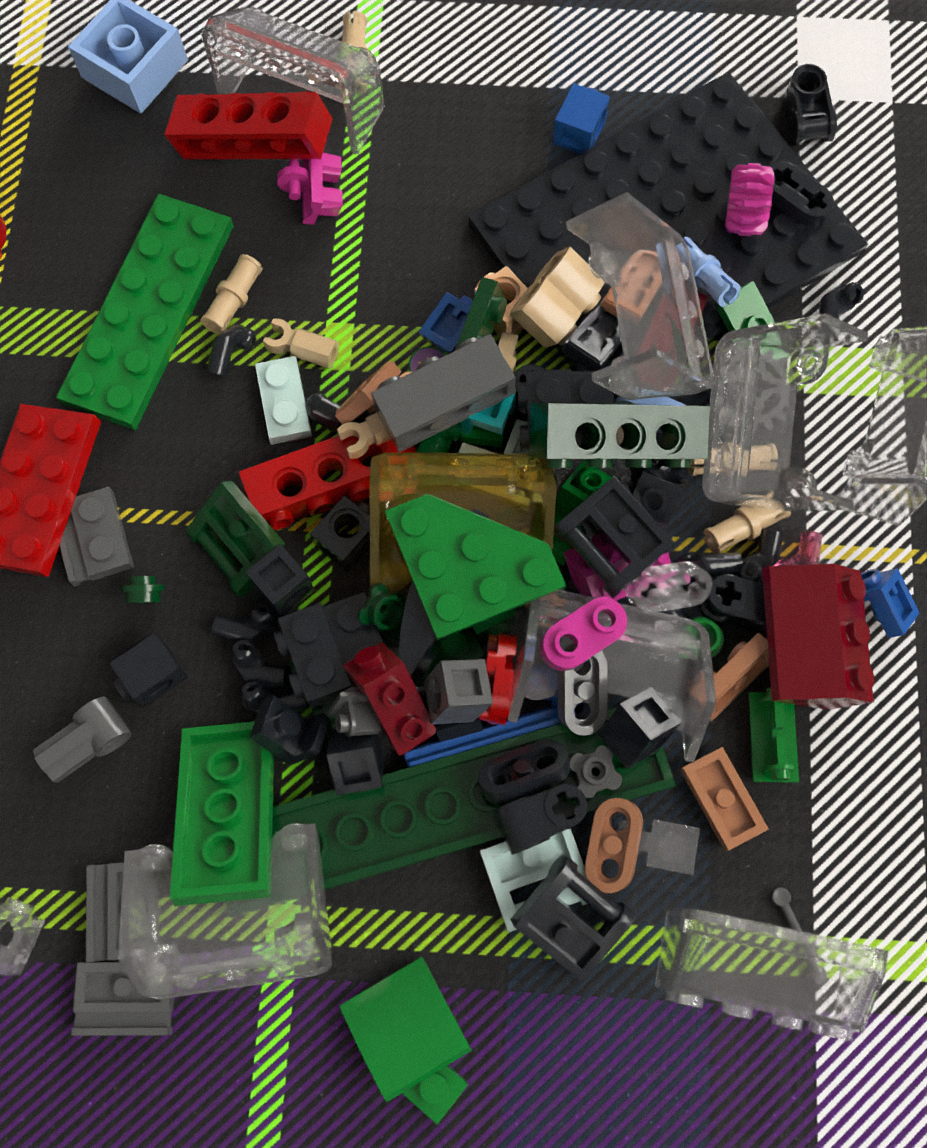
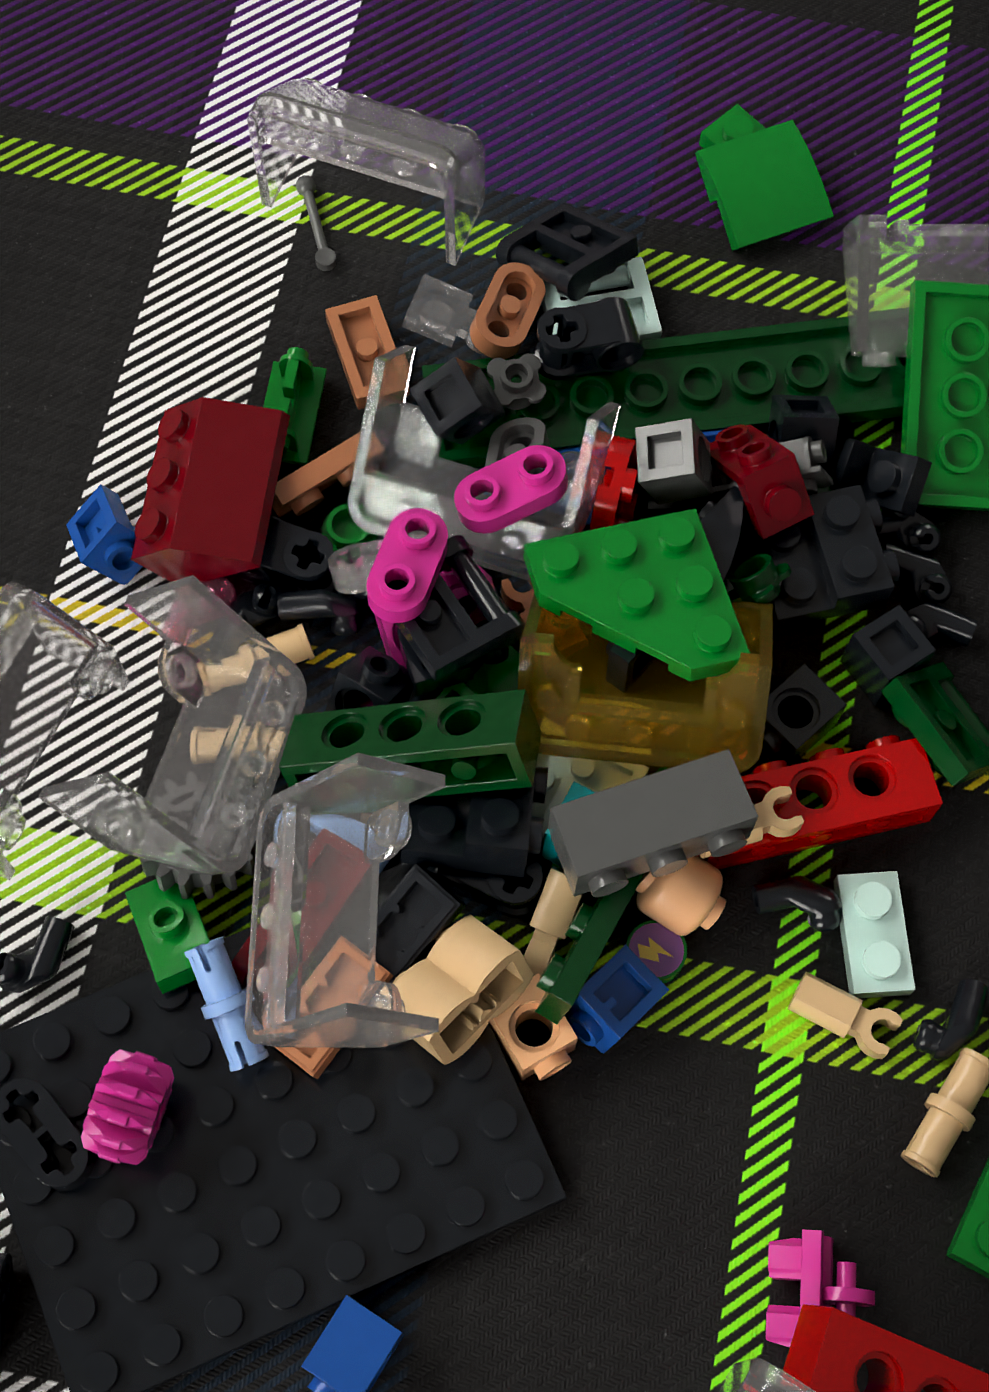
camera: 175 degrees left, 5 degrees down
(361, 398) = (752, 890): nougat plate -> none
(524, 771) = (600, 385): black plate -> none
(651, 549) = (407, 560): none -> dark pink plate

